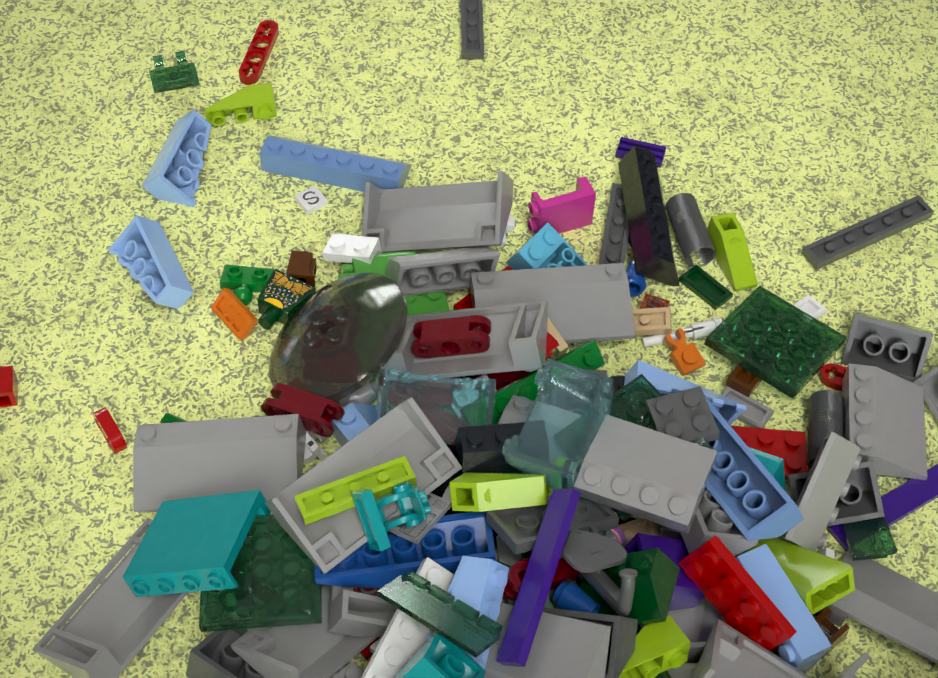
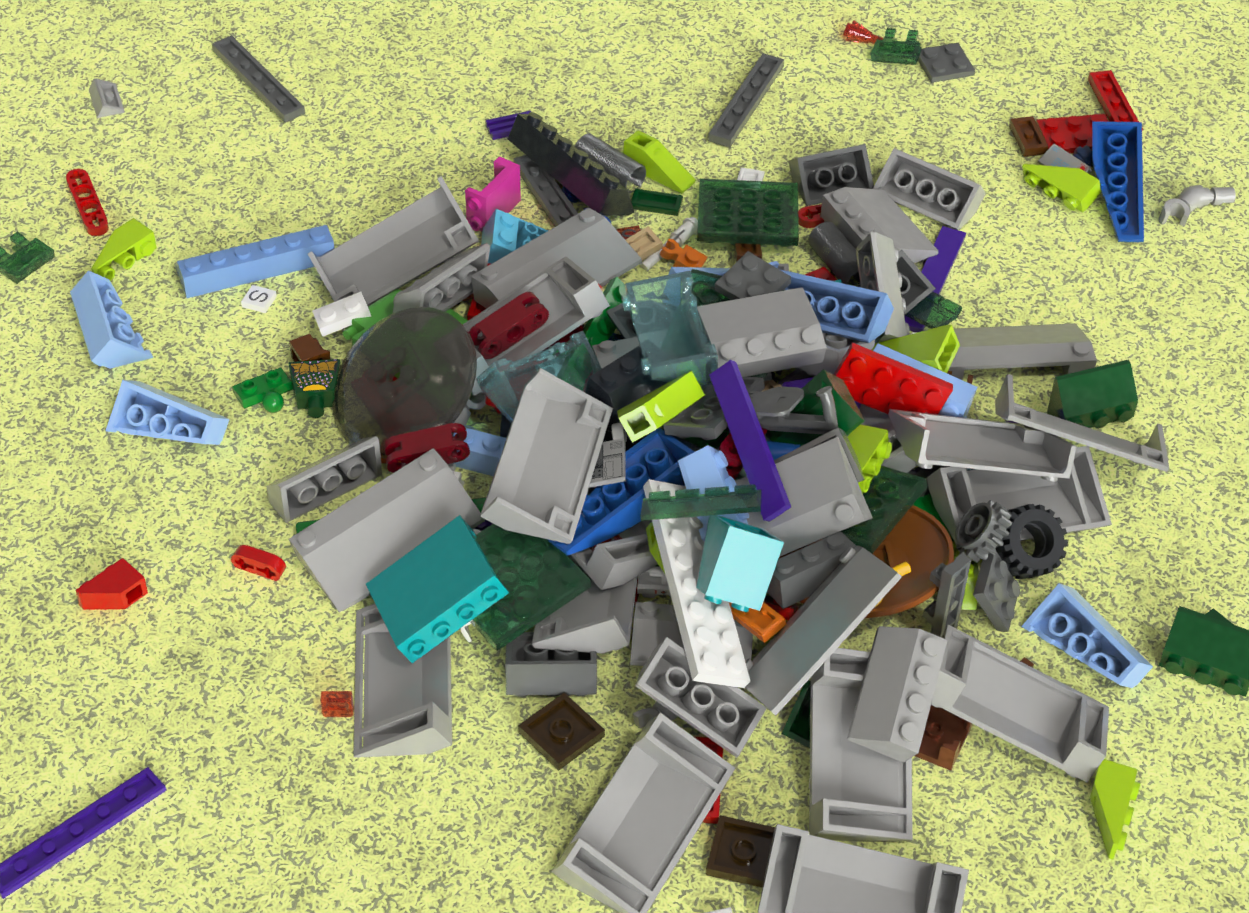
camera: 35 degrees left, 5 degrees down
(54, 594) = (337, 703): none -> clear red tile
(215, 387) = (326, 479): none -> light grey slope
(234, 314) = (280, 418): orange plate -> none
(337, 496) = (547, 465): lime plate -> none
(411, 504) = (602, 453): teal tile -> none

